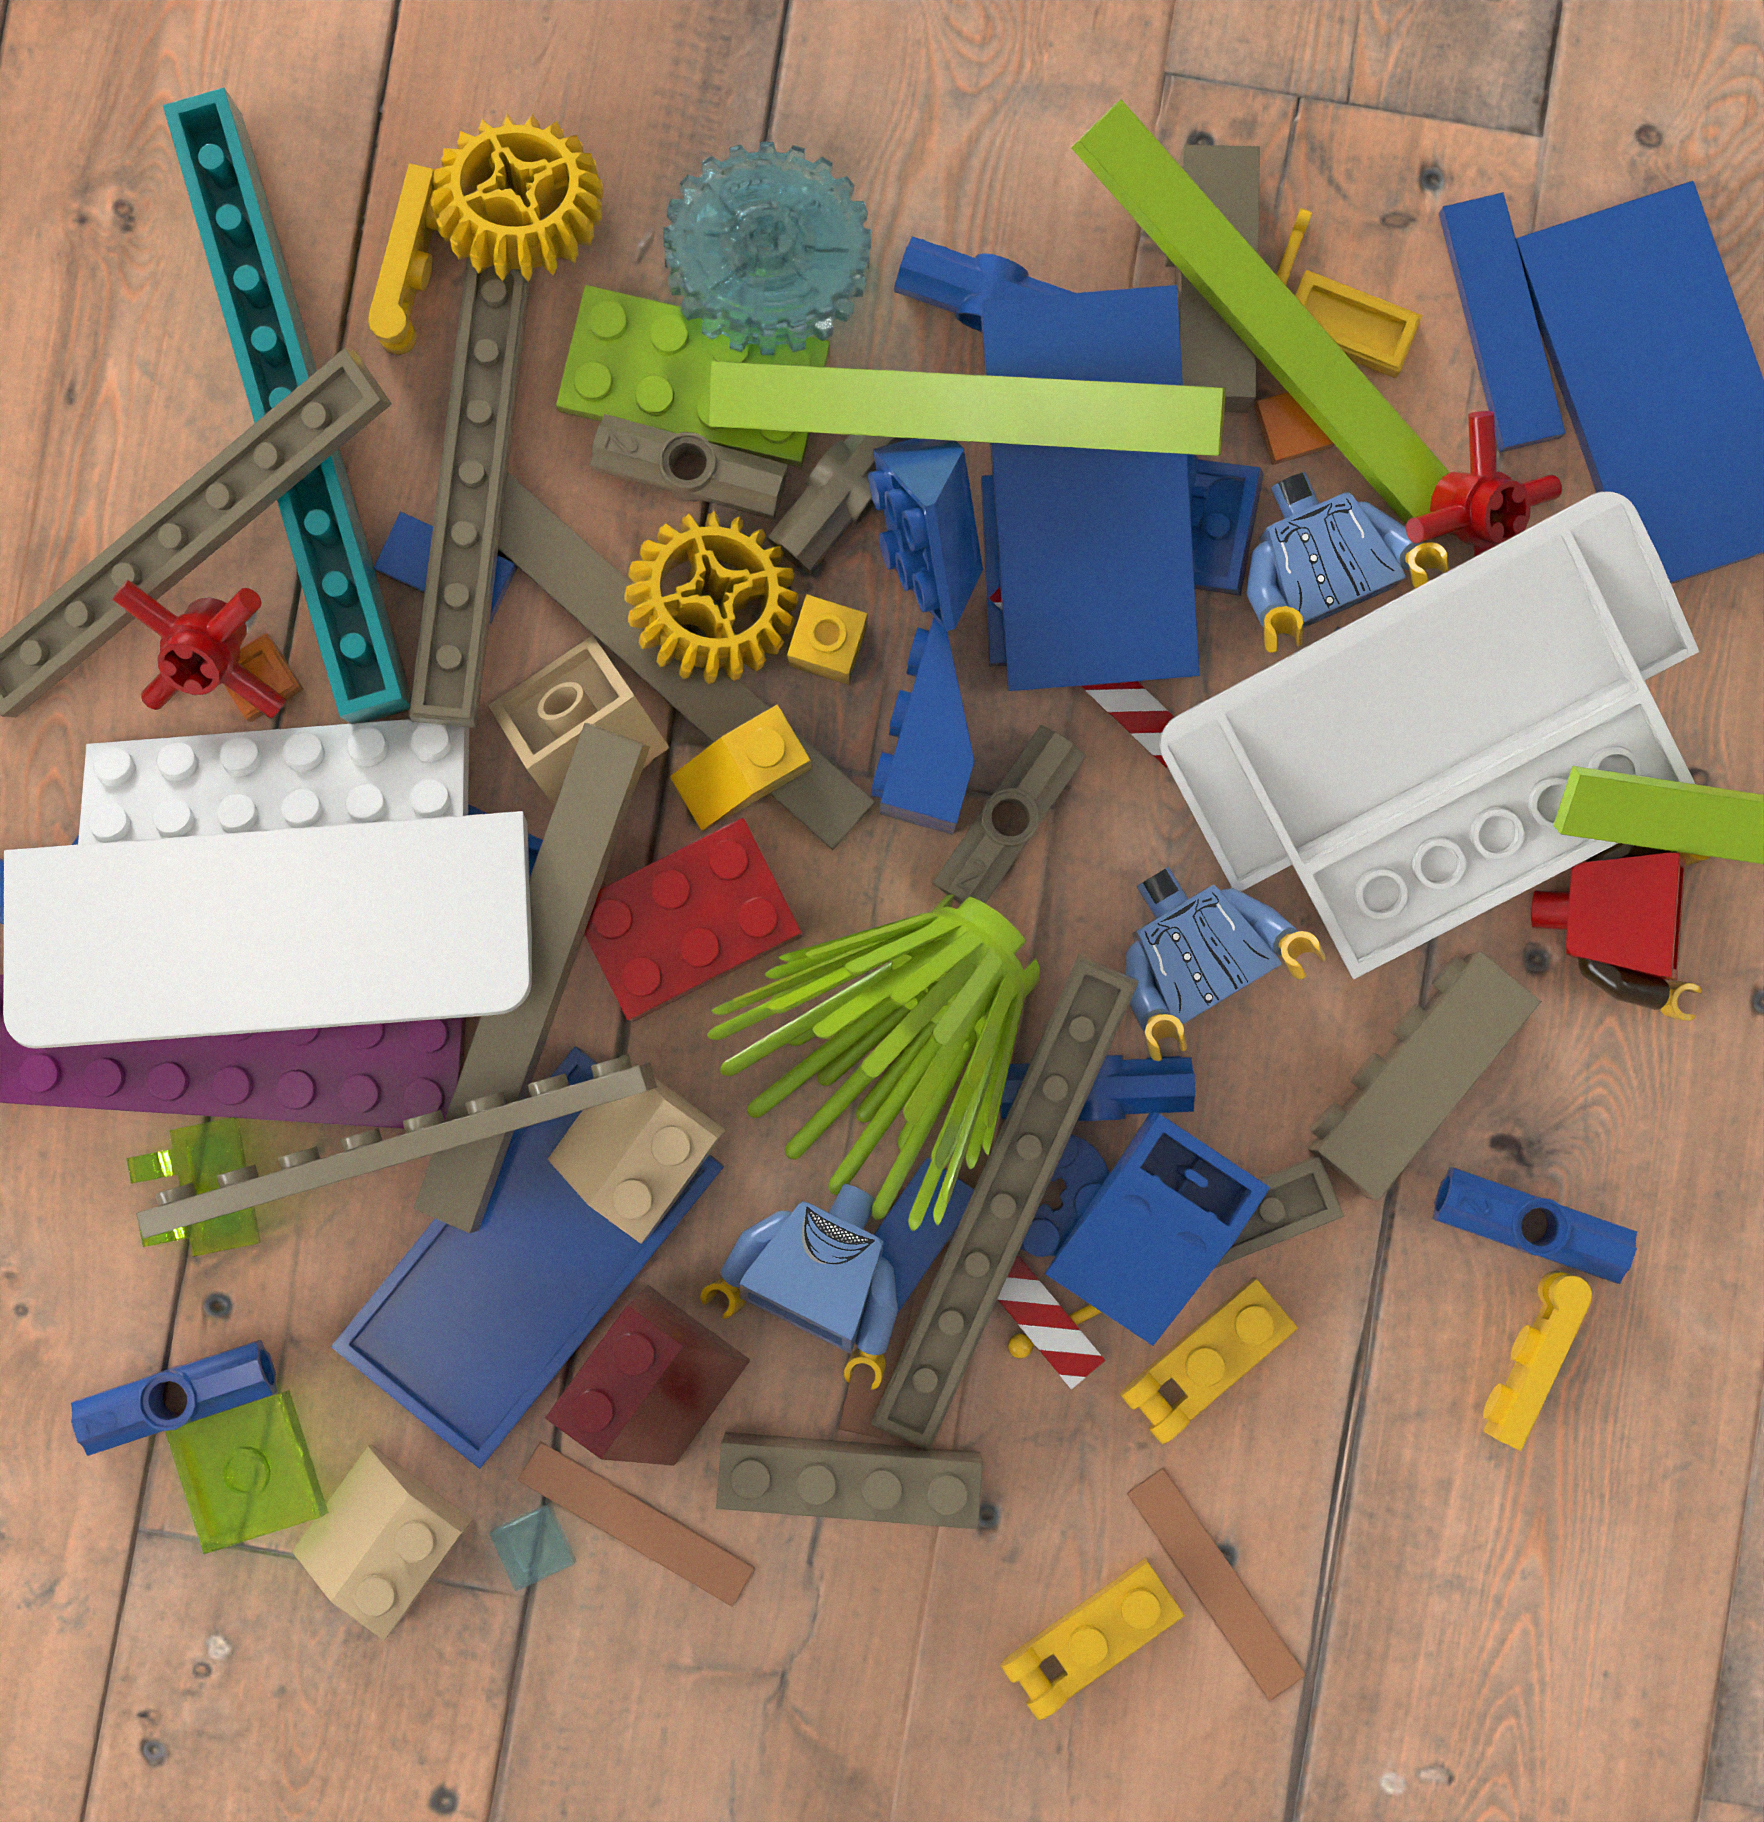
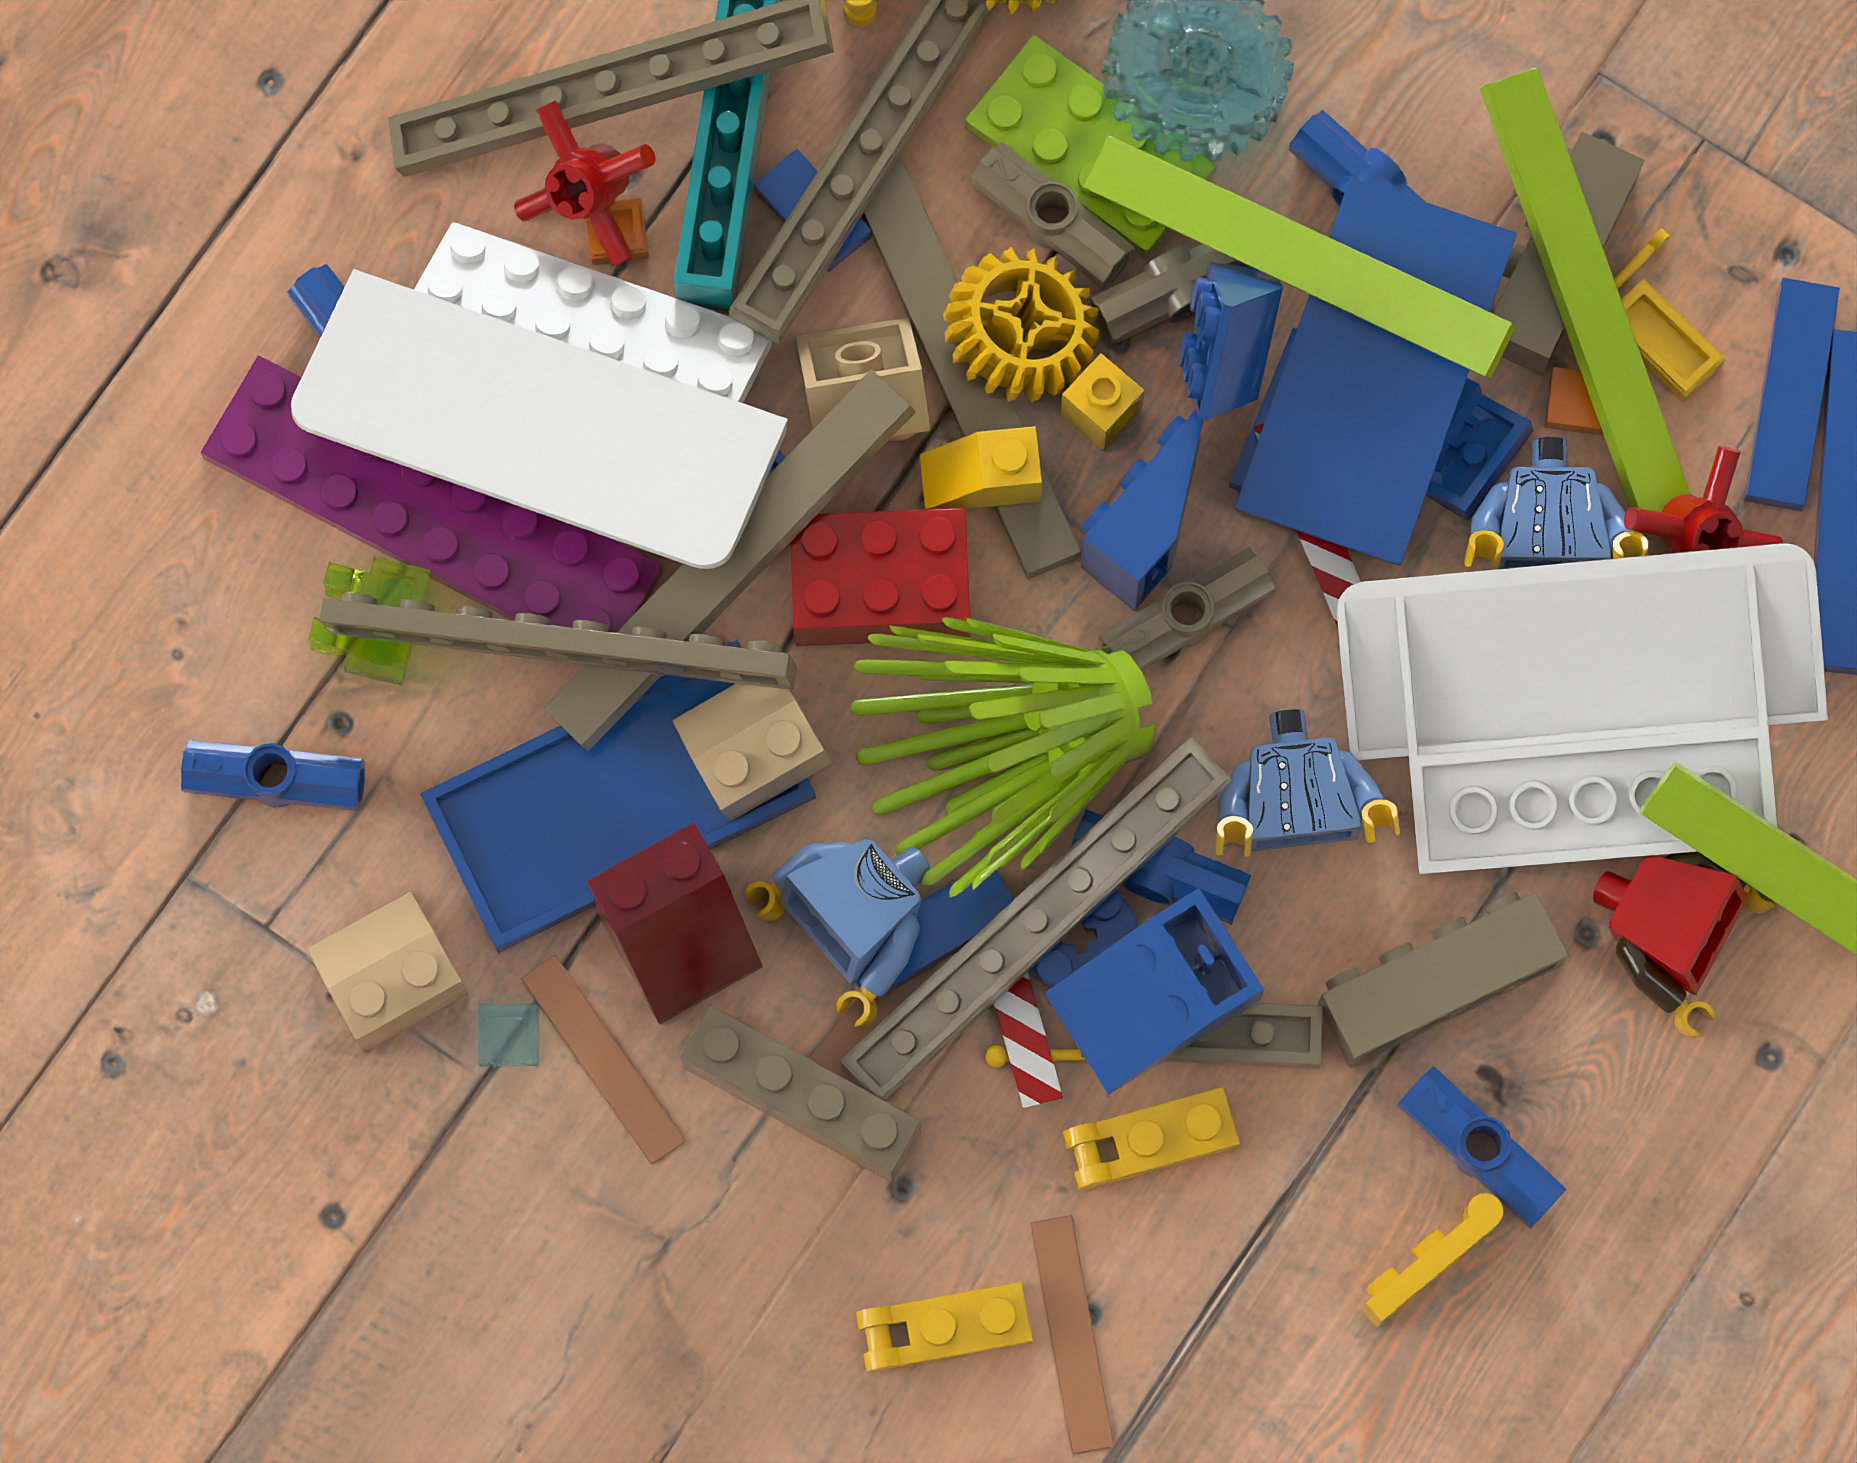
camera: 30 degrees right, 10 degrees down
(246, 1472) = (302, 864): clear neon green tile -> none

